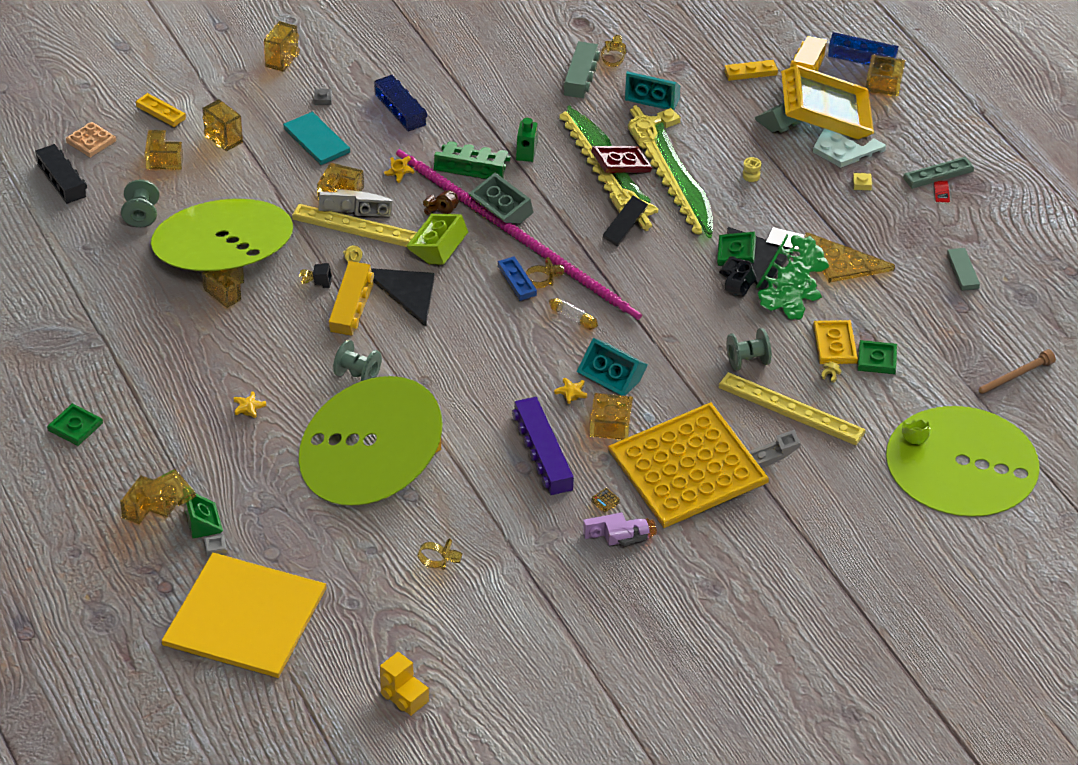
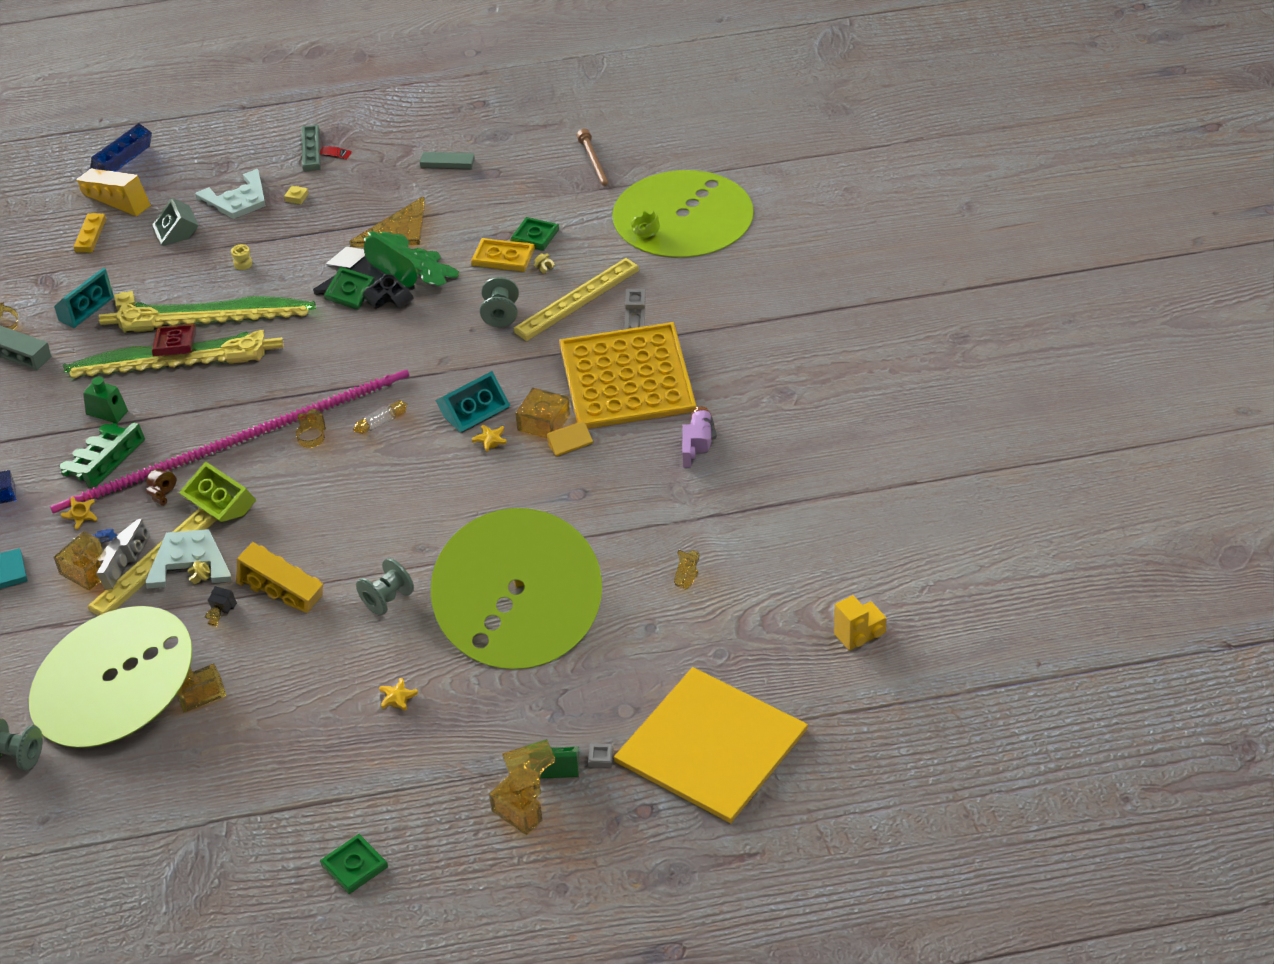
camera: 70 degrees left, 0 degrees up
(370, 187) = (105, 535): none -> blue axle
(370, 236) = (181, 551): none -> light aqua wing
(408, 288) = (281, 533): black tile -> none
(503, 199) = (188, 432): sand green slope -> none
(517, 278) = (307, 448): blue plate -> none
(543, 446) = (560, 469): dark purple brick -> none
(588, 444) = (569, 438): none -> yellow slope
(605, 500) = (648, 441): clear yellow tile -> none
(625, 220) = (270, 353): black tile -> none
(827, 102) = (185, 184): yellow window -> none
(885, 75) = (165, 145): clear yellow brick -> none

